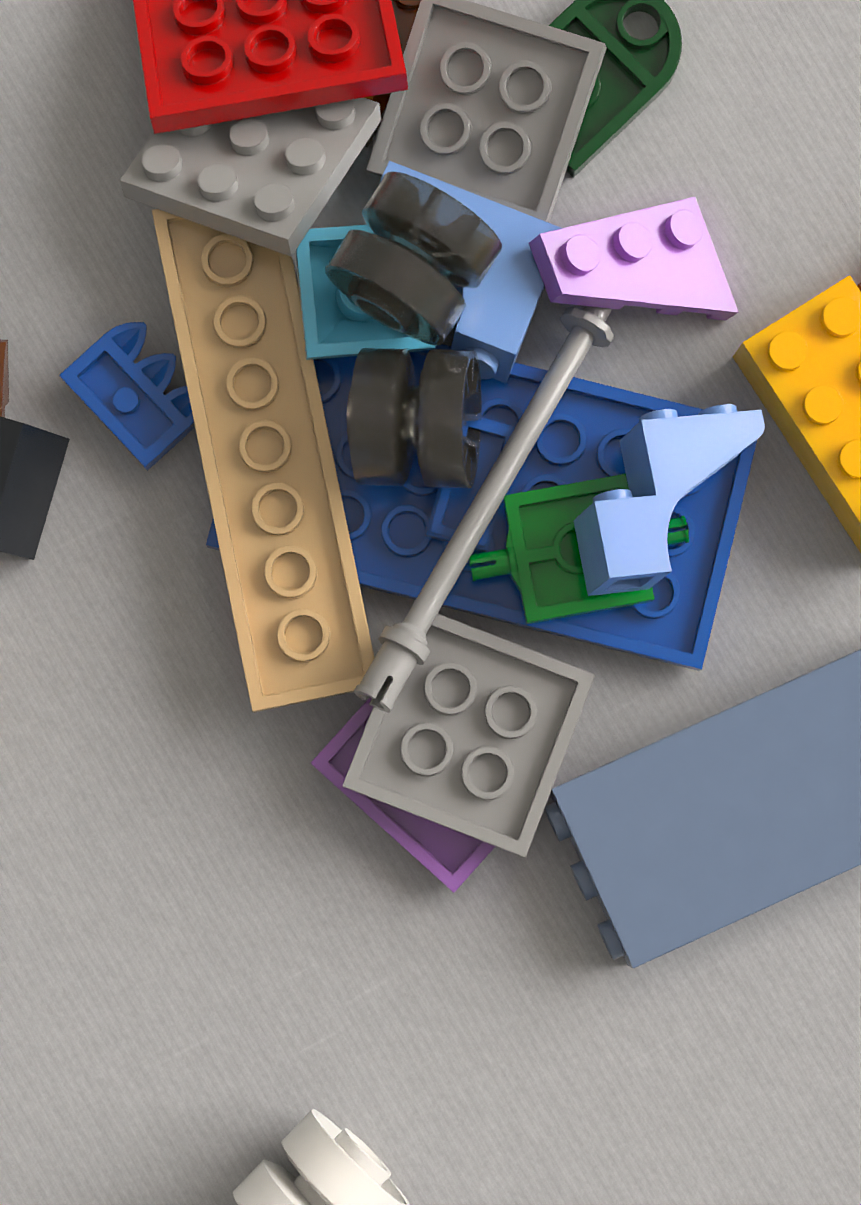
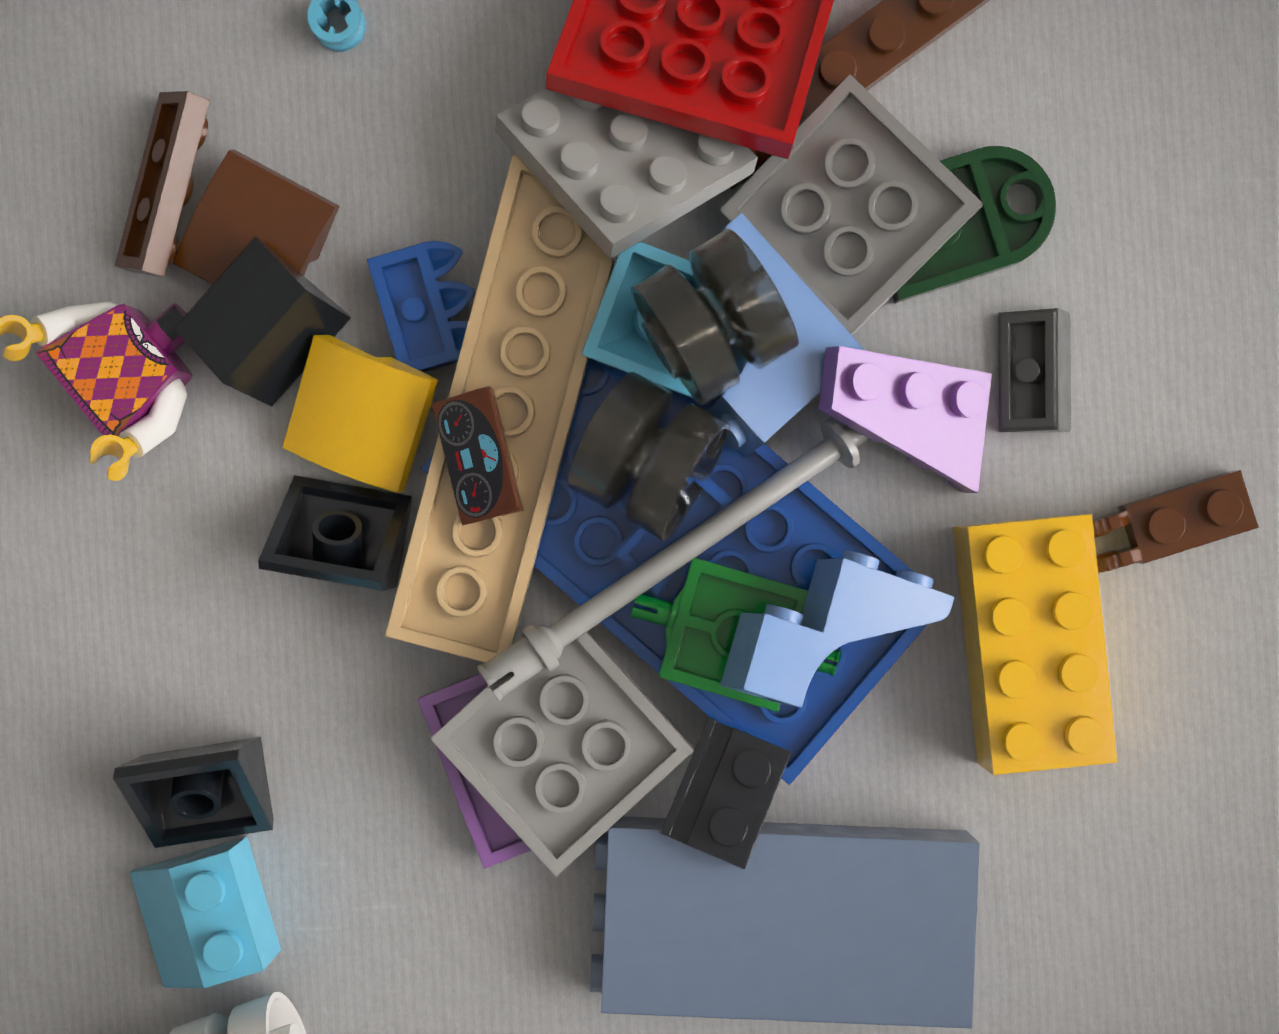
camera: 30 degrees right, 5 degrees up
(123, 521) = (359, 413): none -> yellow slope
(146, 960) = (199, 792): none -> black slope
(159, 645) = (338, 534): none -> black slope
(206, 1077) = (207, 916): none -> medium azure slope
(257, 498) = (477, 456): none -> slope
(645, 701) = (726, 793): none -> black plate
(734, 176) = (1034, 371): none -> dark grey slope

